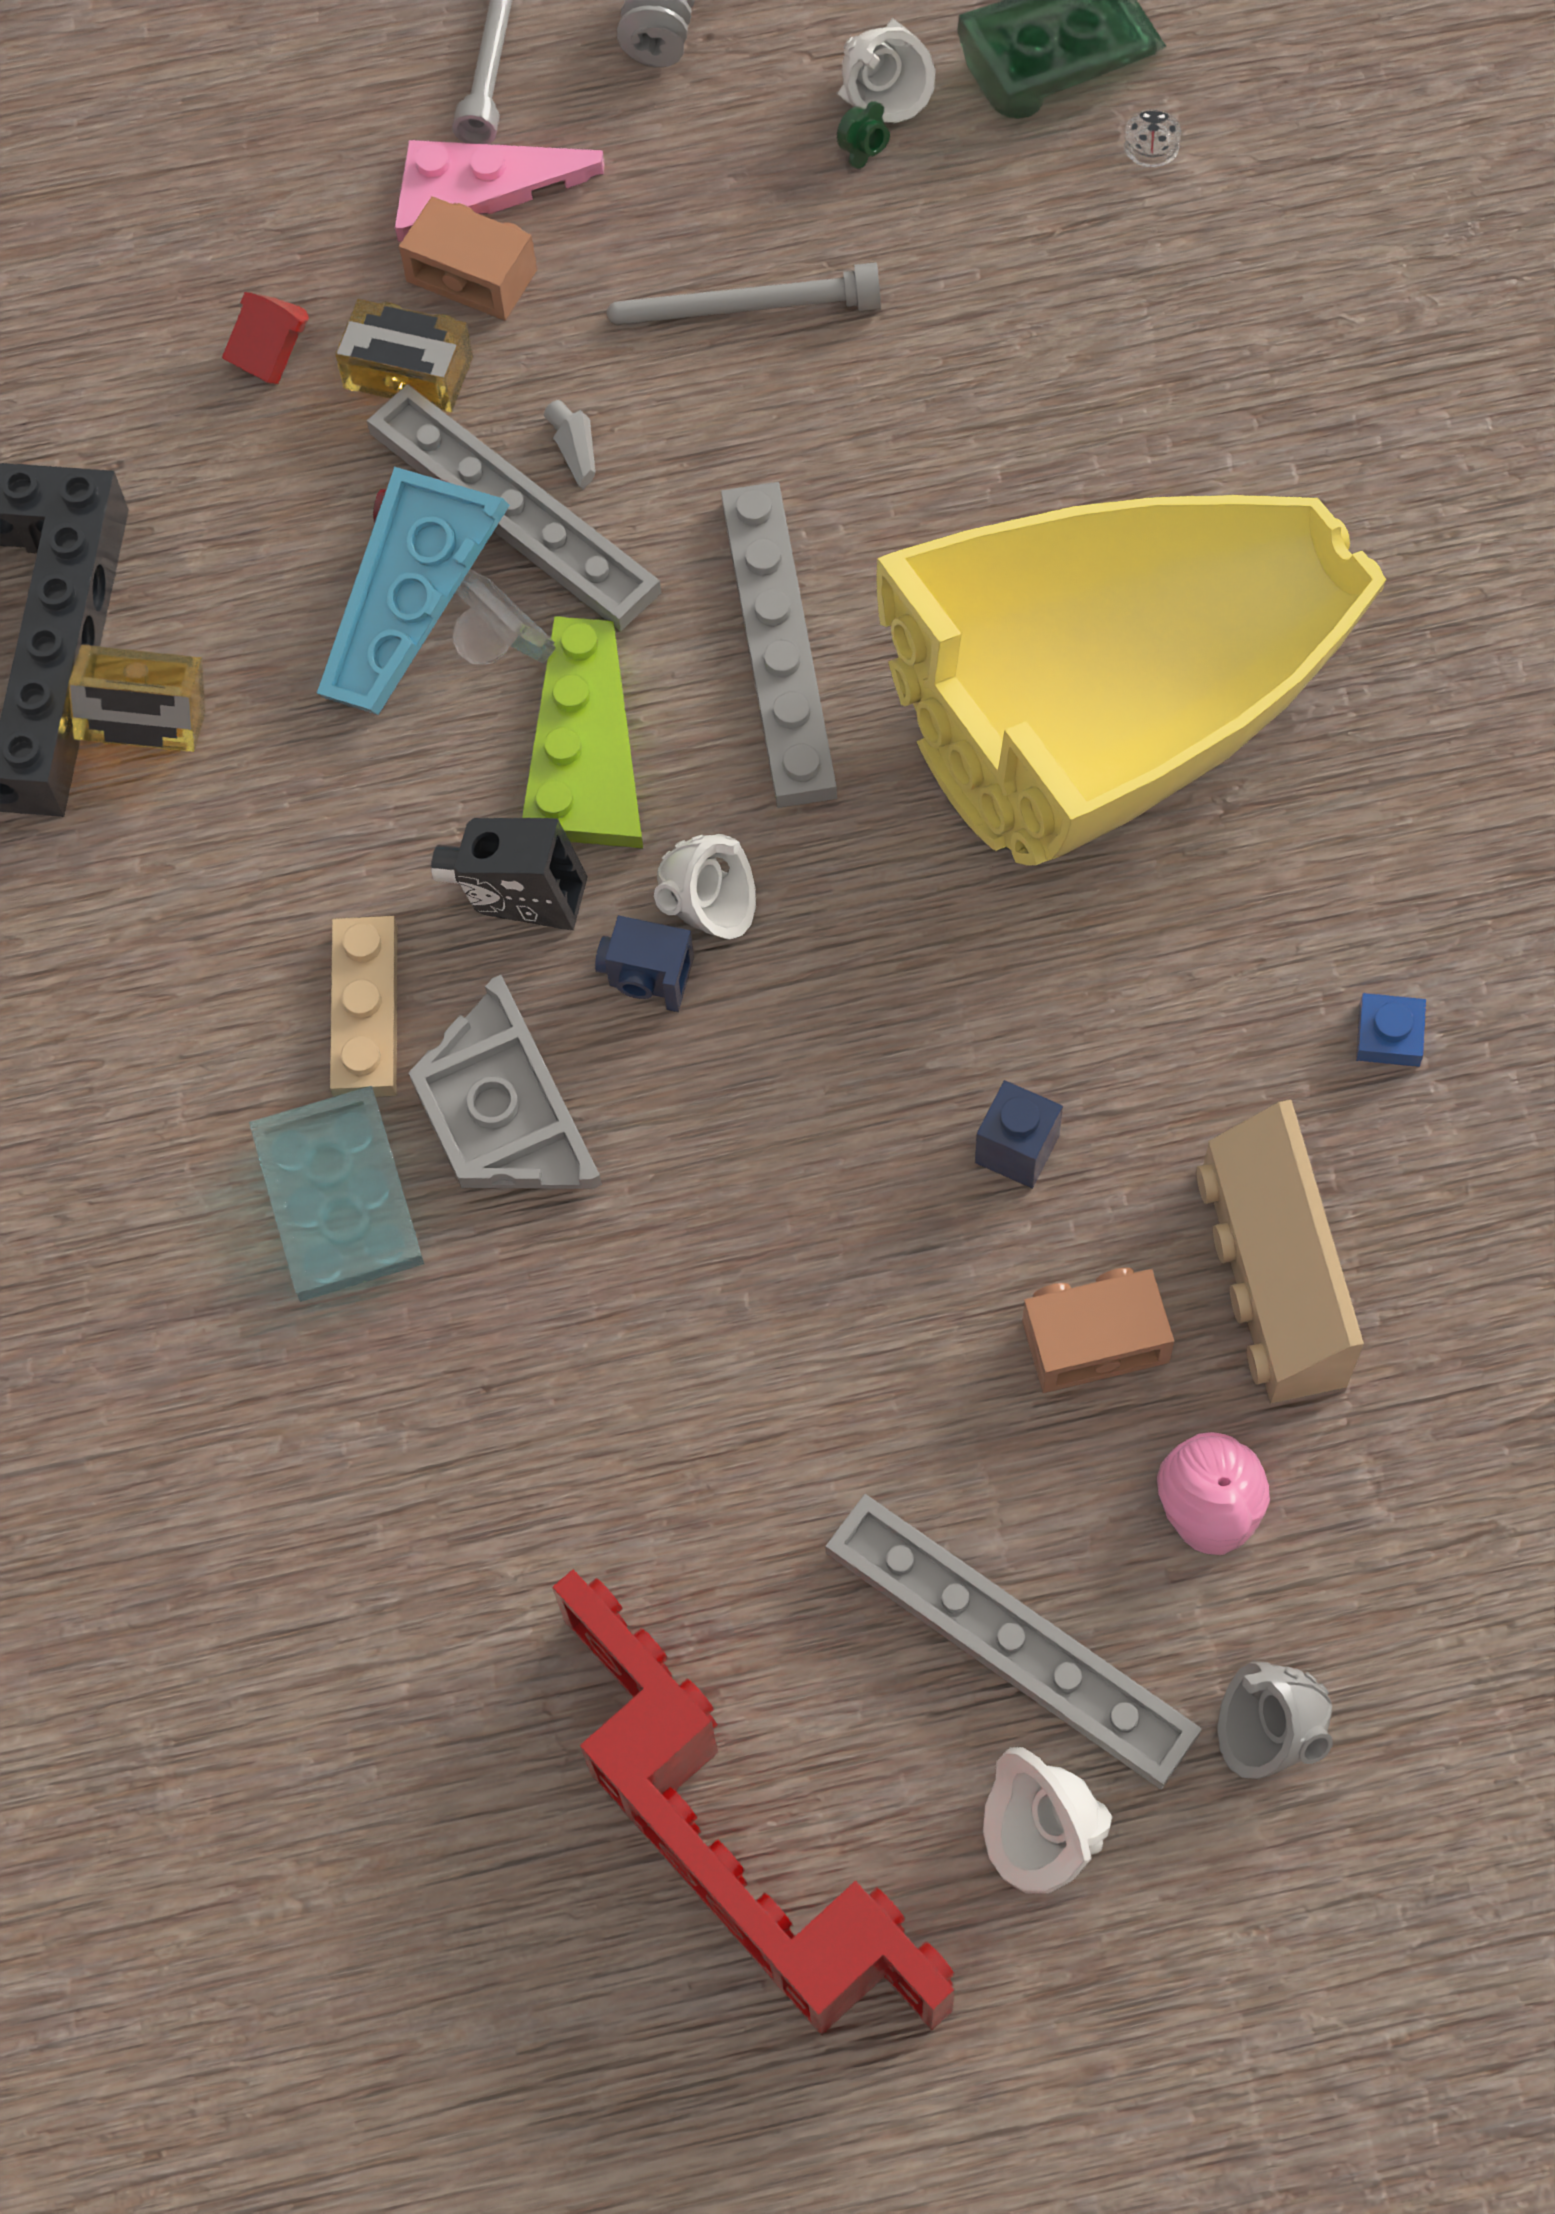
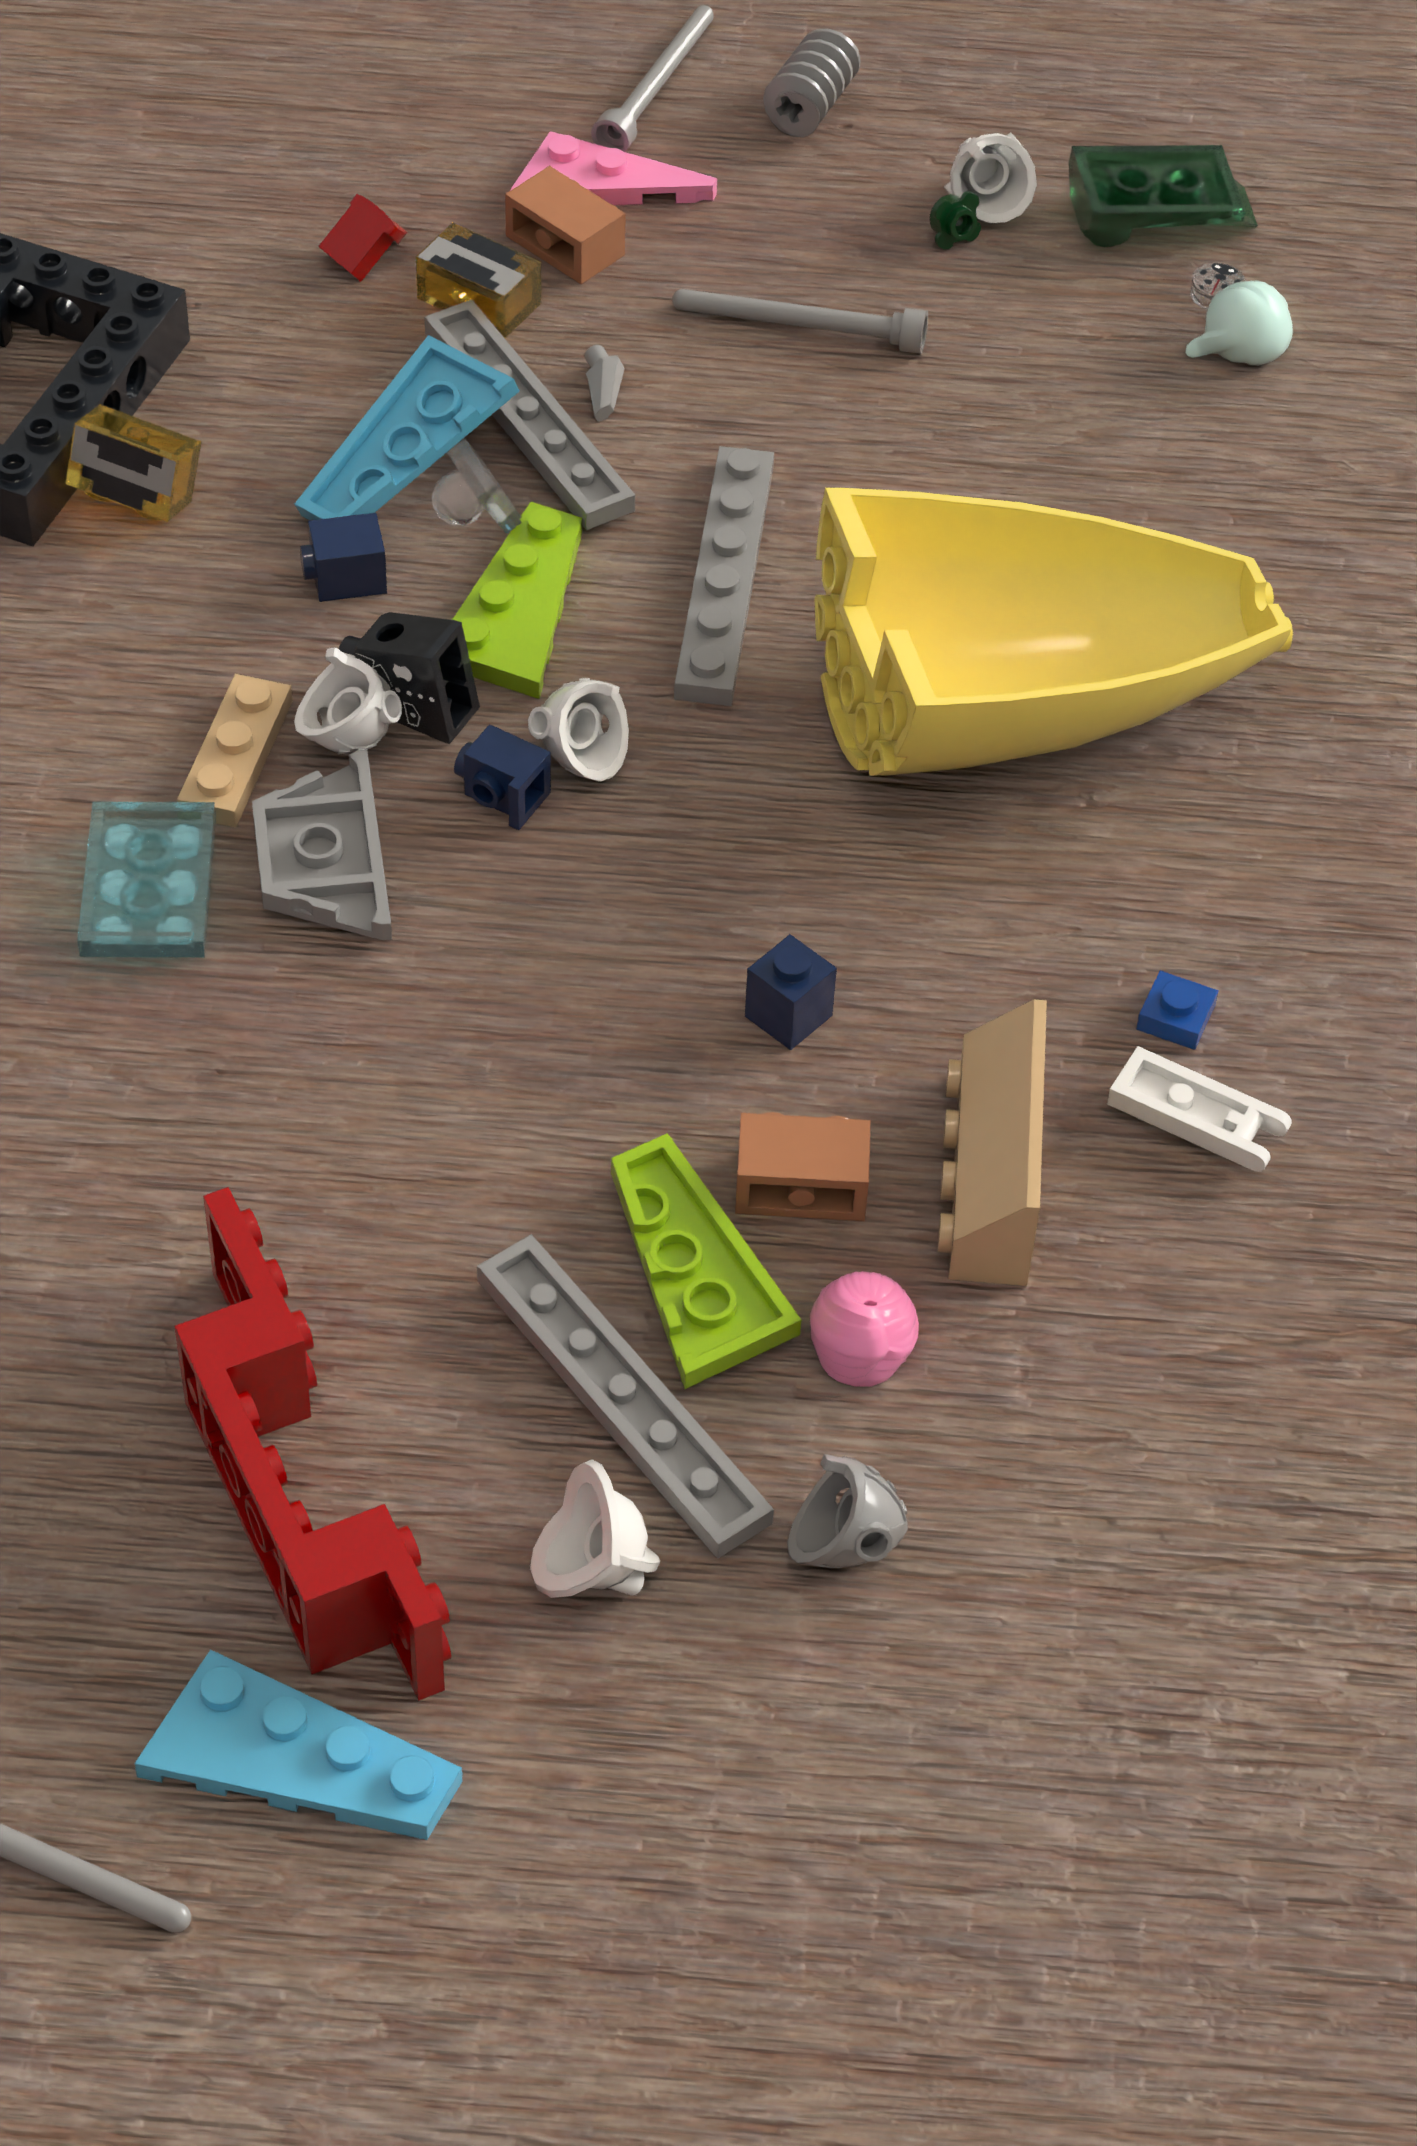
camera: 10 degrees right, 15 degrees down
(393, 744) = (345, 557): none -> dark blue brick
(468, 932) = (351, 706): none -> white helmet
(823, 2128) = (281, 1745): none -> medium azure wing
(1041, 1481) = (700, 1270): none -> lime wing
(1199, 183) = (1245, 325): none -> light aqua hair
(1447, 1142) = (1196, 1108): none -> white hinge

